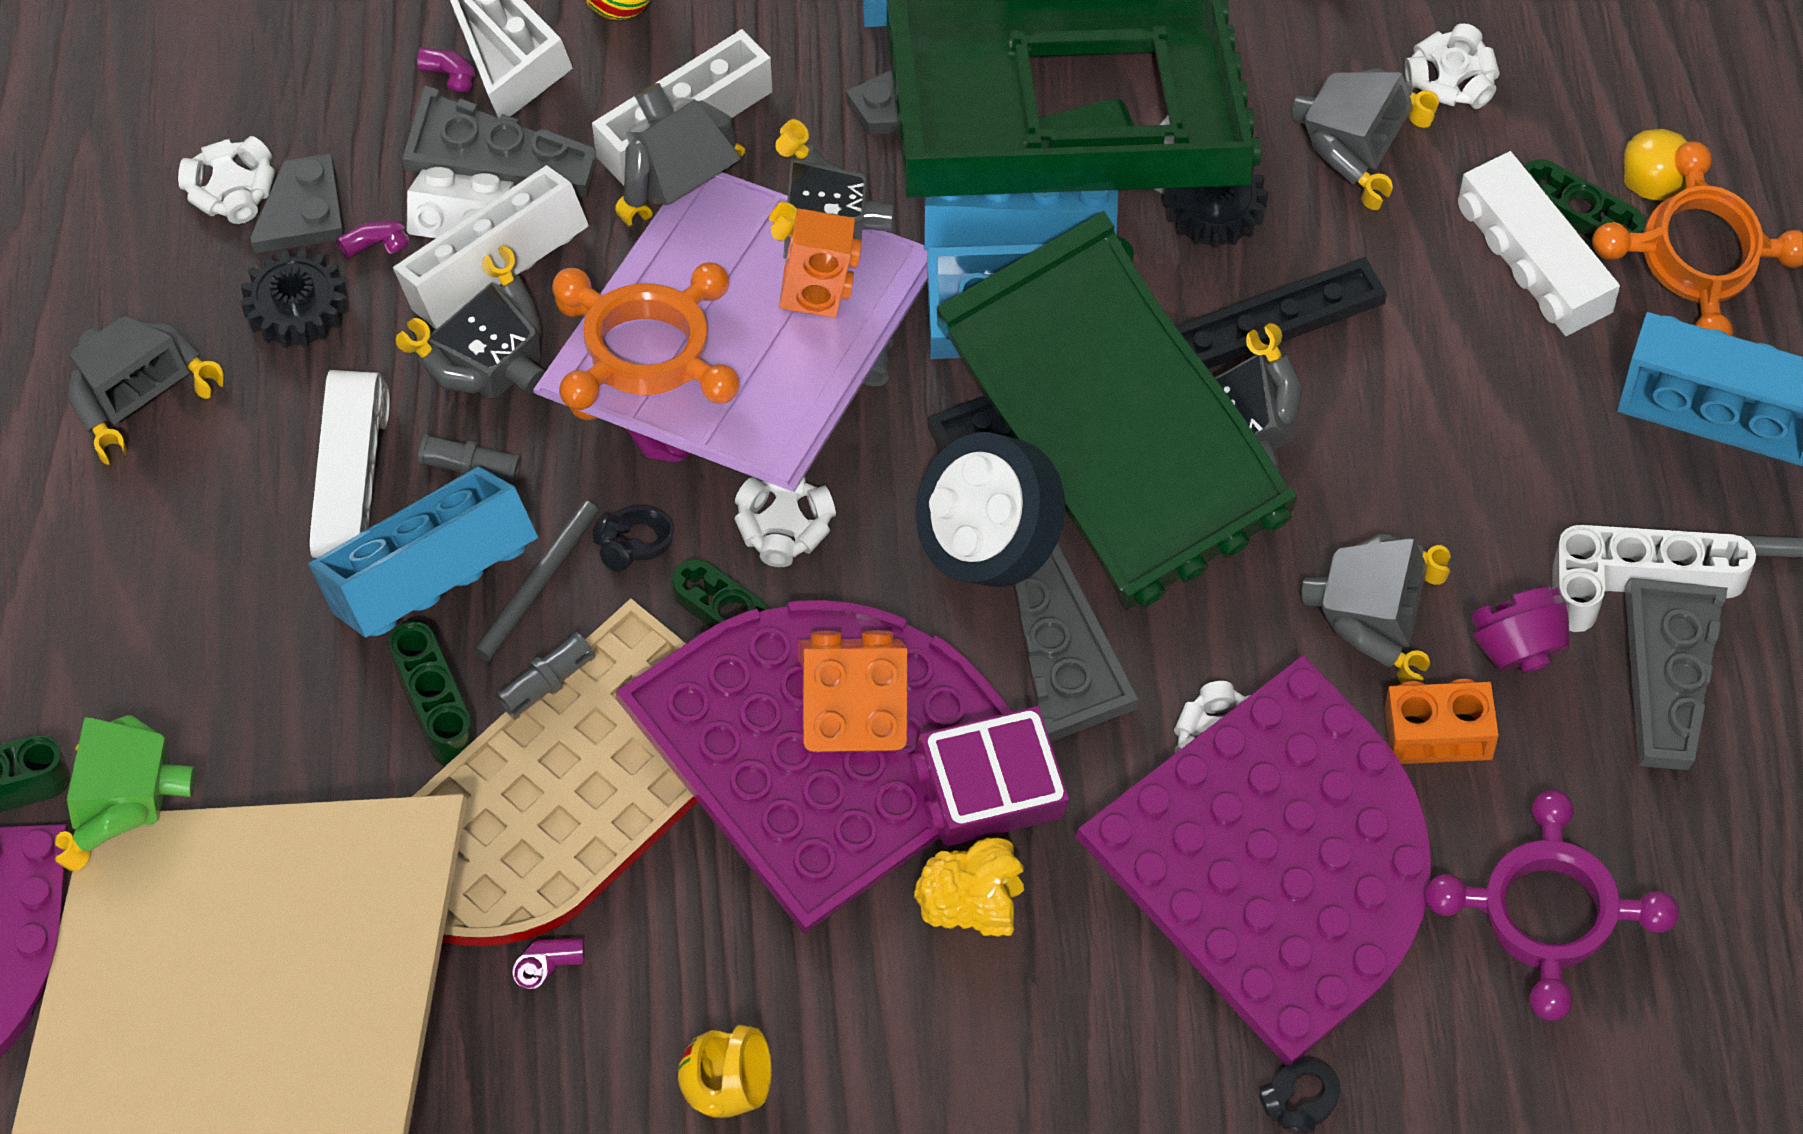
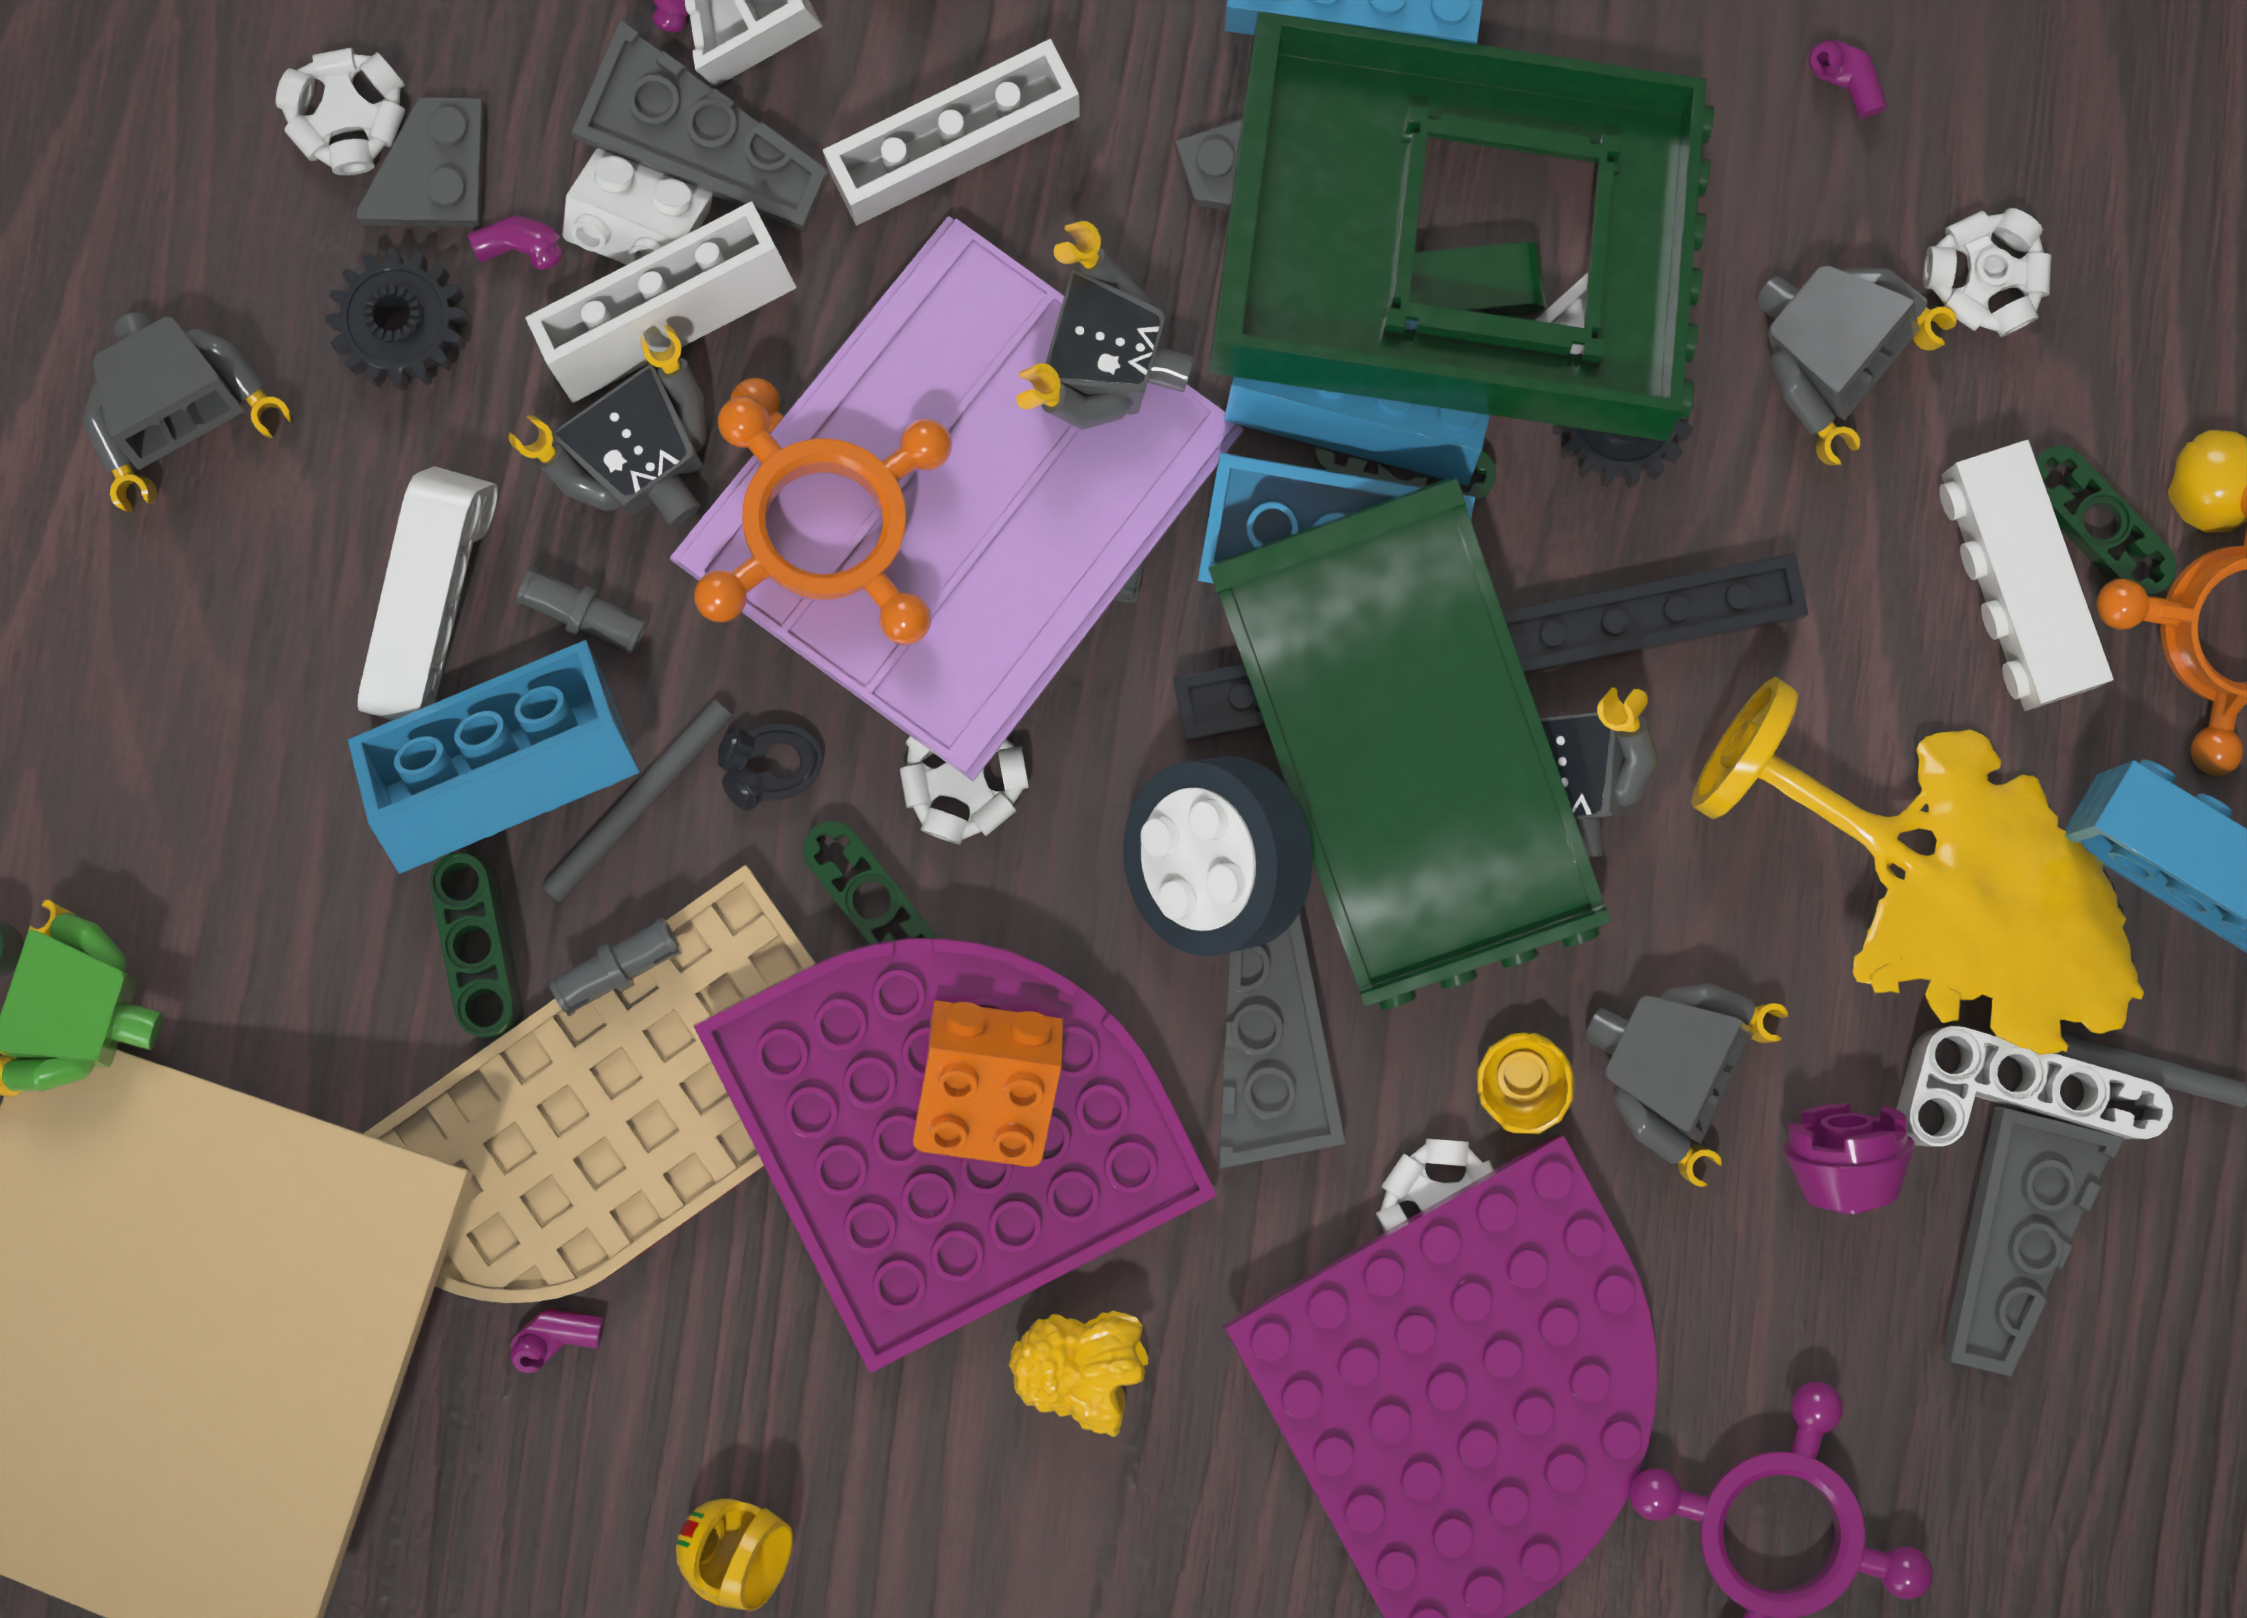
camera: 10 degrees right, 25 degrees up
(673, 151) = (924, 218): dark grey torso -> none
(818, 263) = (1072, 453): orange brick -> none
(989, 777) = (1132, 1231): magenta brick -> none
(1265, 631) = (1525, 1083): none -> yellow hair
(1442, 734) = (1710, 1266): orange brick -> none
(1571, 442) = (1995, 908): none -> yellow plant

